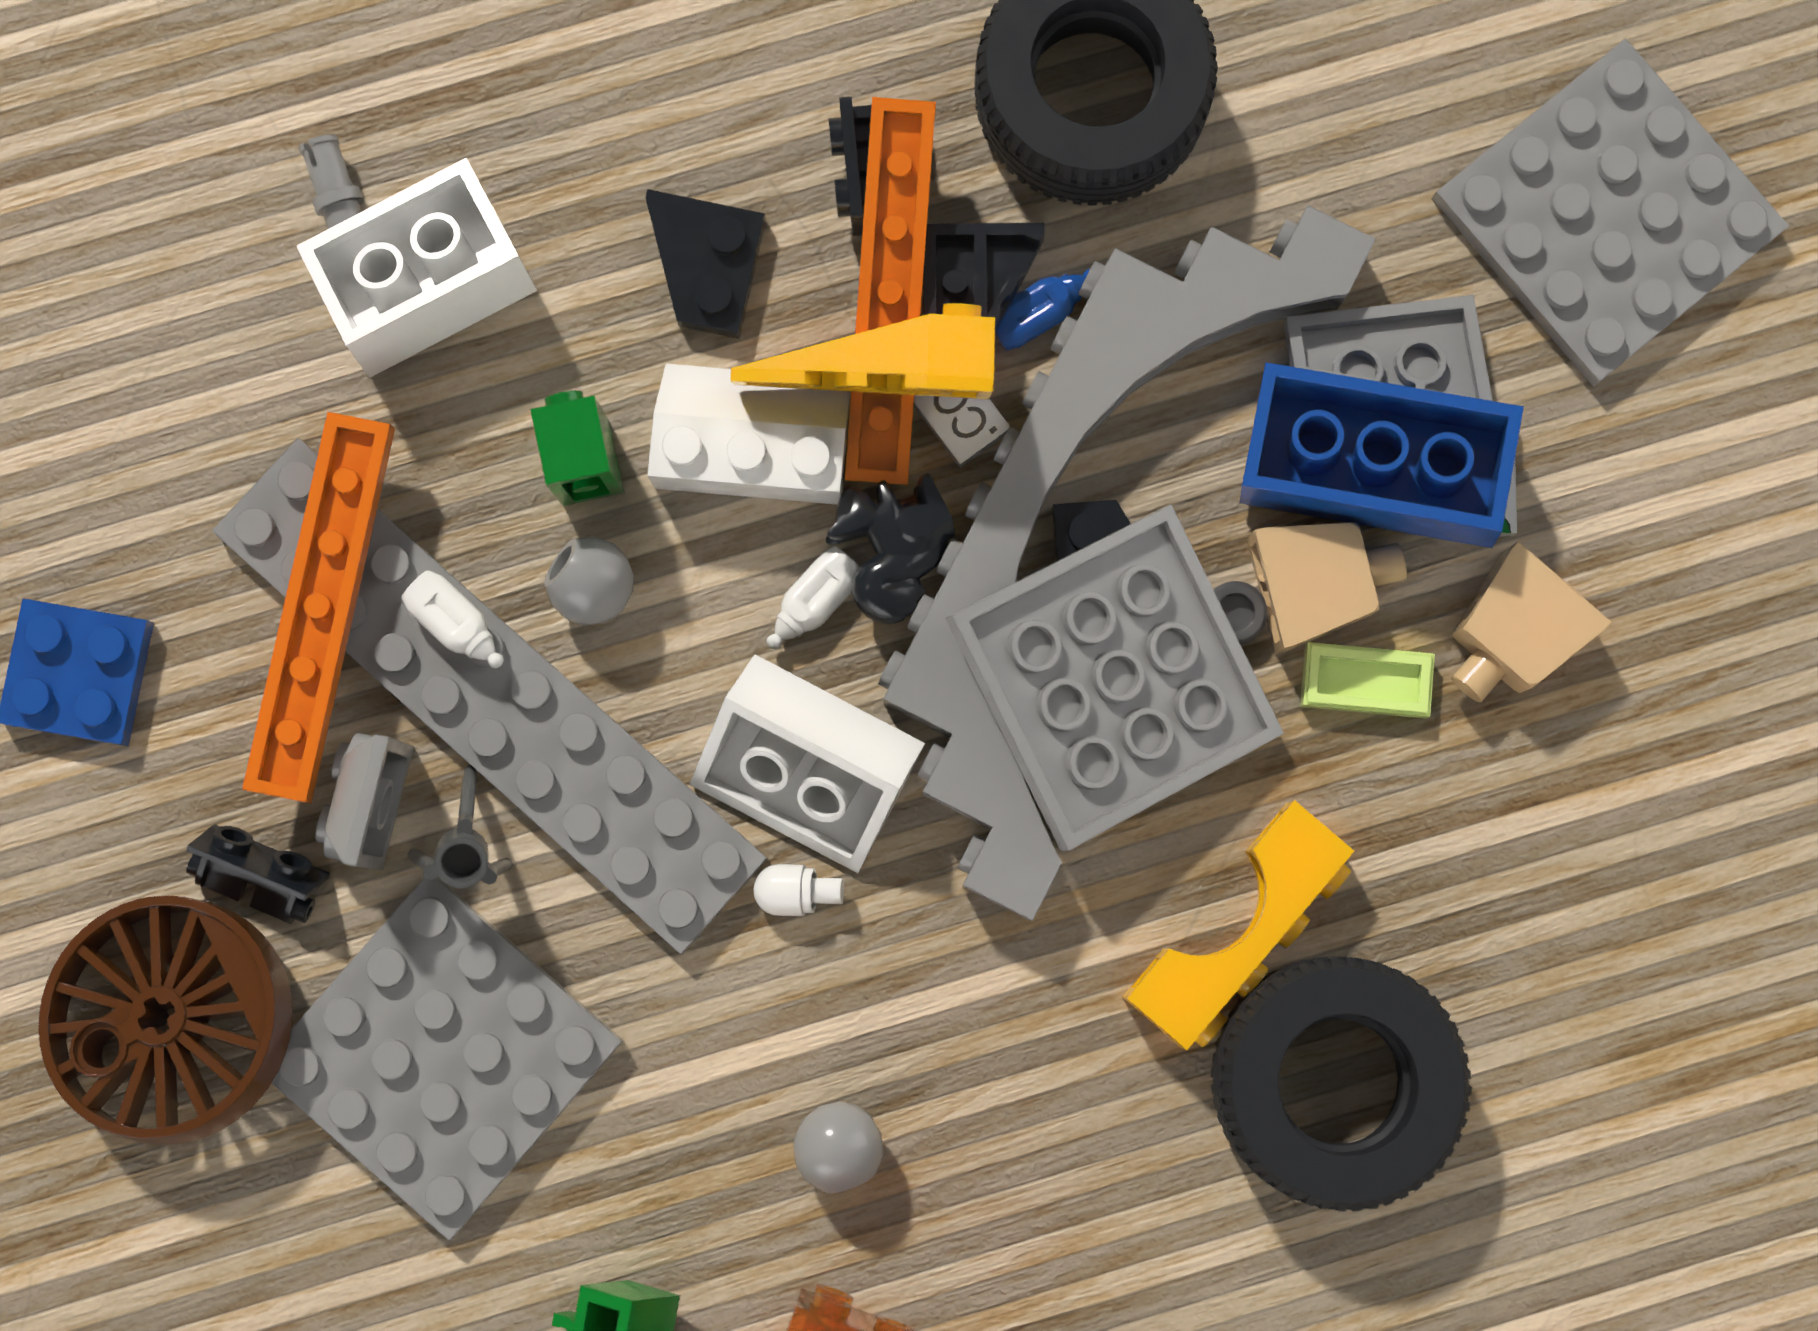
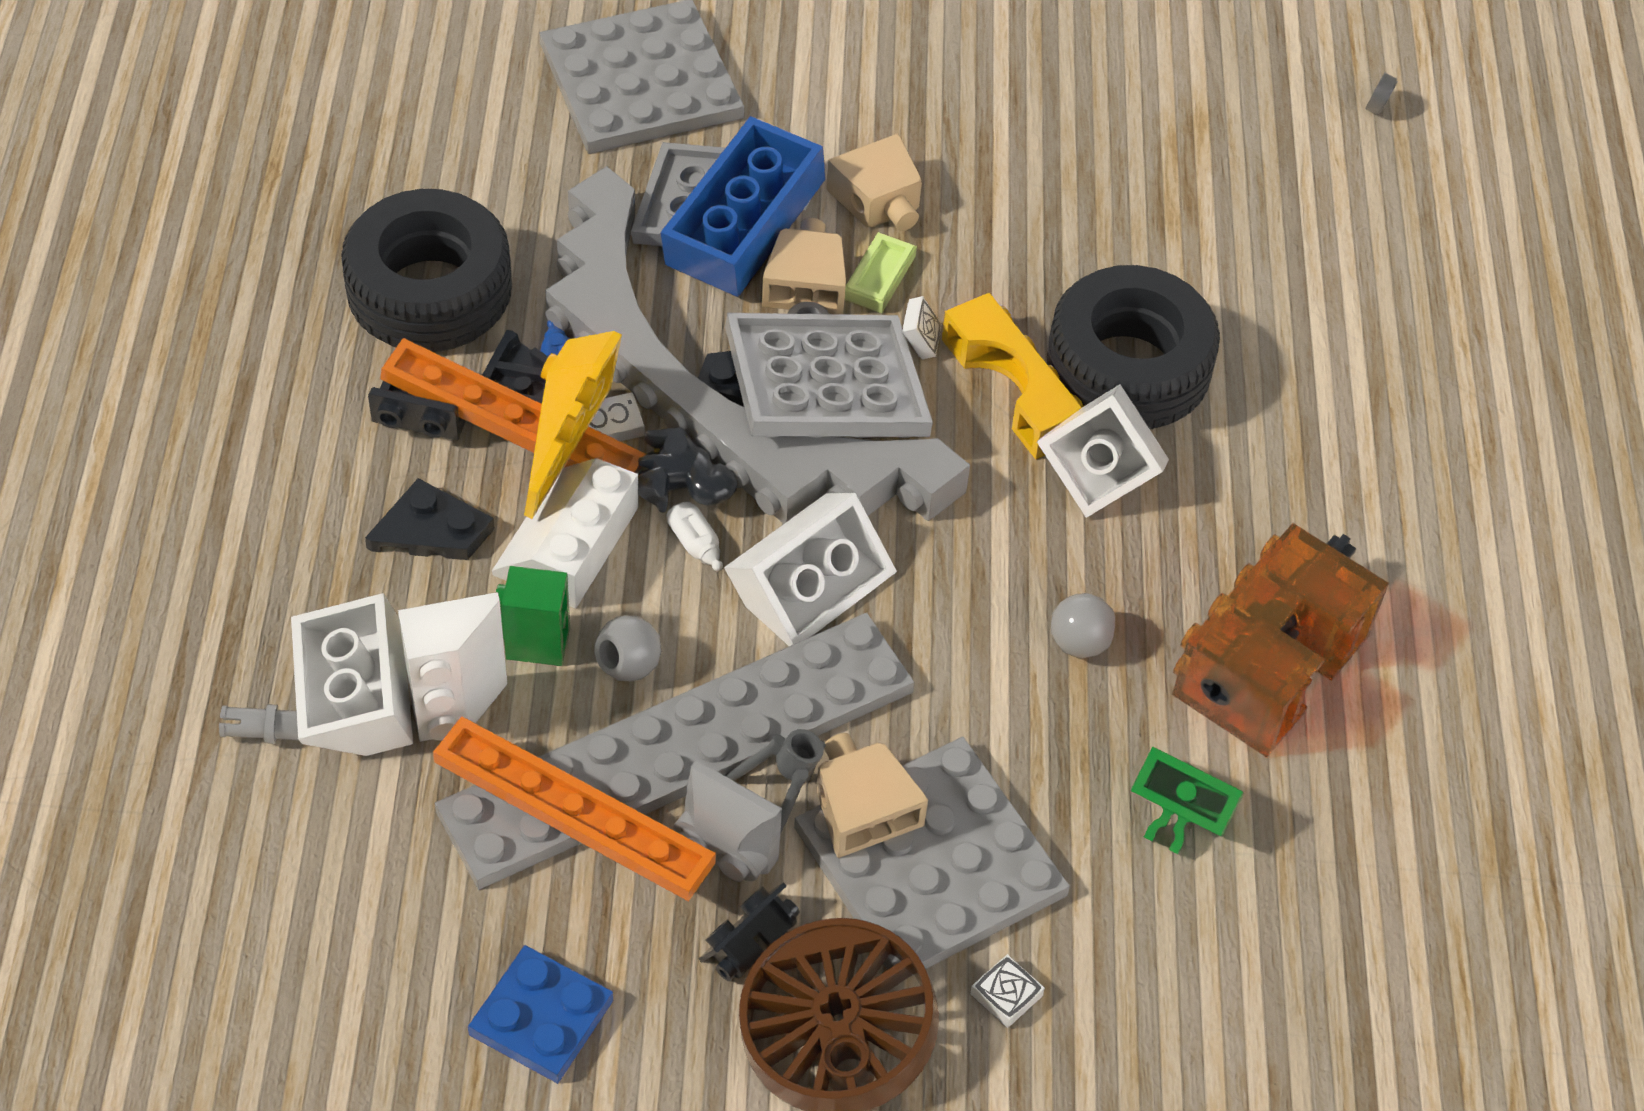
camera: 75 degrees left, 30 degrees down
(286, 1205) = (1007, 991): none -> white tile
(430, 379) = (453, 661): none -> white slope
(450, 617) = (618, 732): white piece -> none
(456, 953) = (866, 795): none -> tan torso
(795, 890) = (895, 605): white cylinder -> none
(1131, 1097) = (1103, 451): none -> white slope
(1272, 774) = (922, 328): none -> white tile

